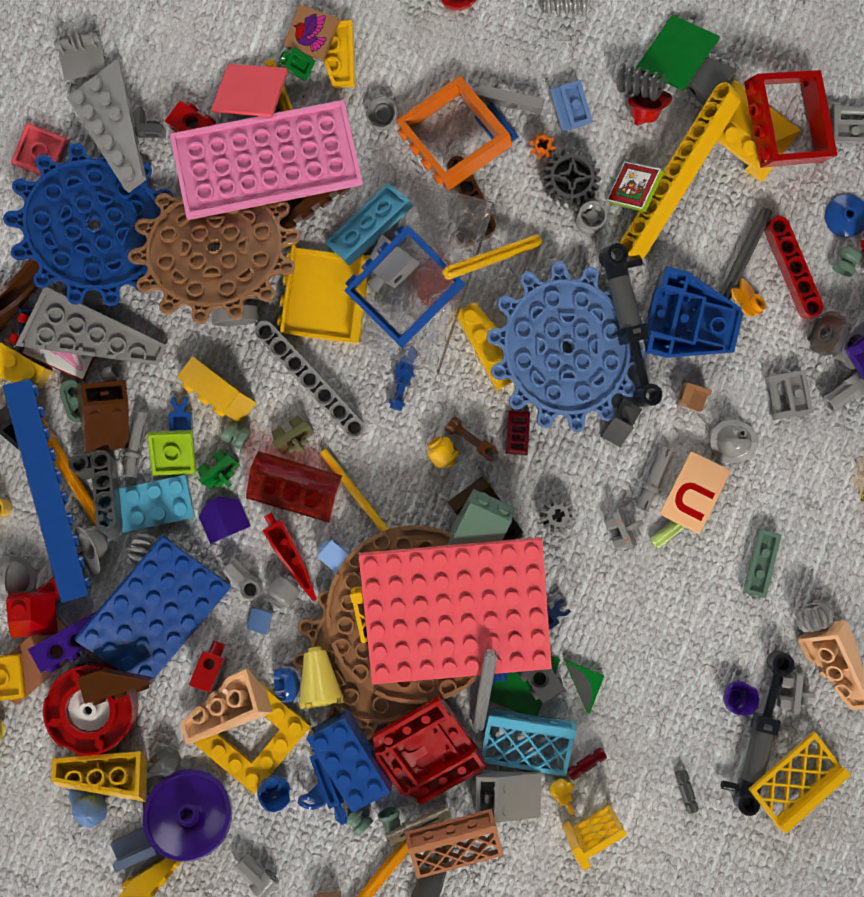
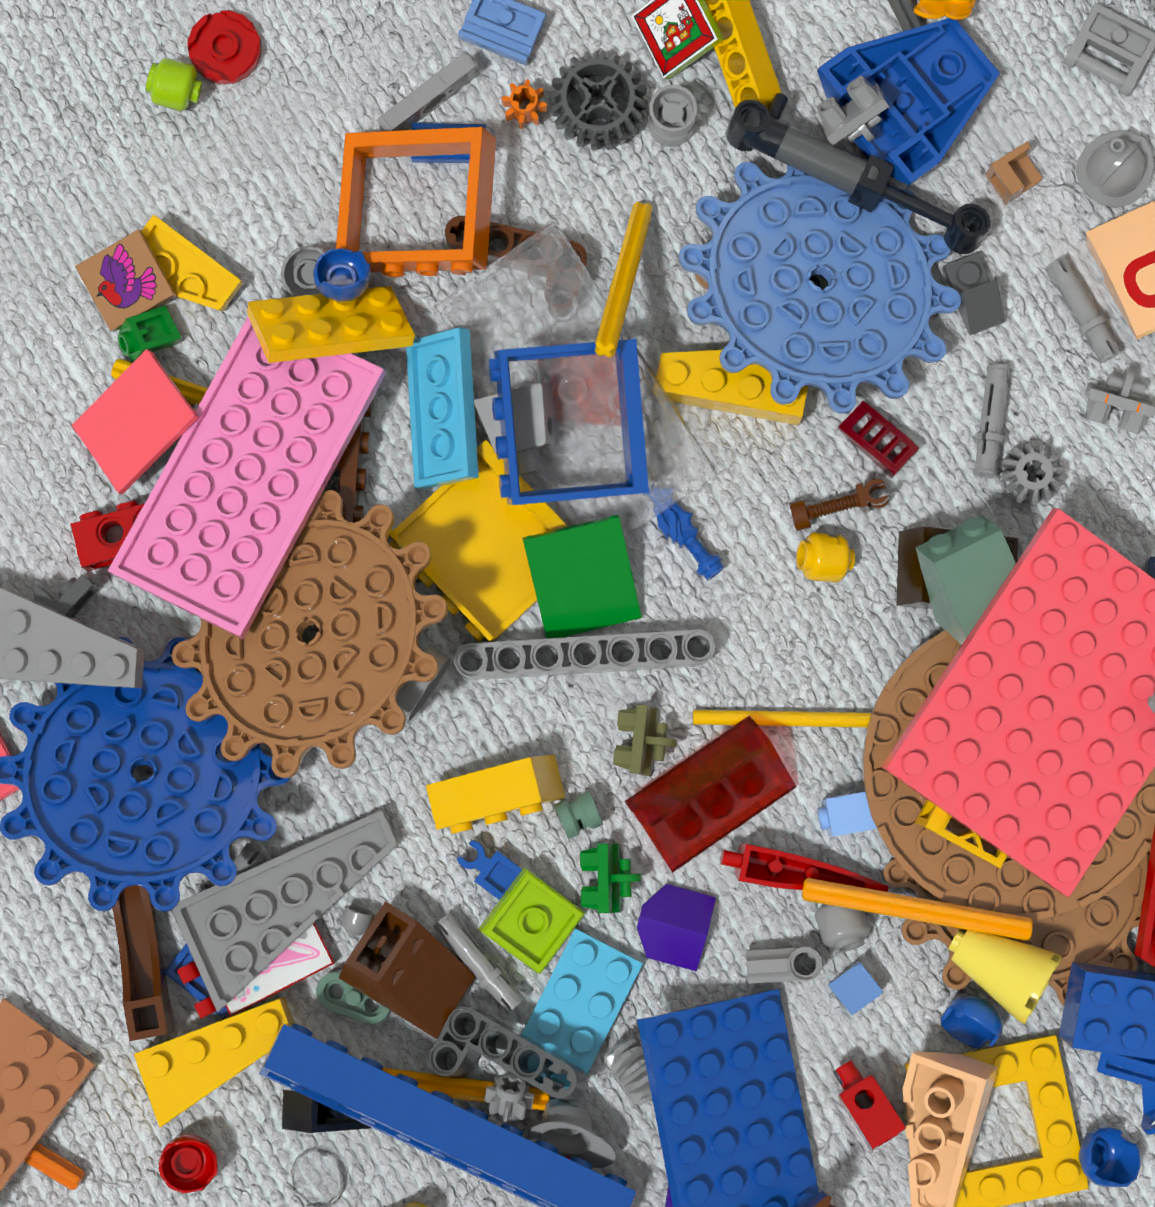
camera: 45 degrees left, 5 degrees down
(82, 506) = (509, 1098): none -> light grey gear
(313, 620) = (917, 909): none -> light orange axle
(343, 350) = (582, 577): none -> green piece
(364, 141) = (322, 327): none -> yellow plate
(390, 127) = (342, 274): none -> blue hair
(560, 482) = (992, 418): none -> light grey pin
(658, 302) = (857, 115): none -> light grey hips

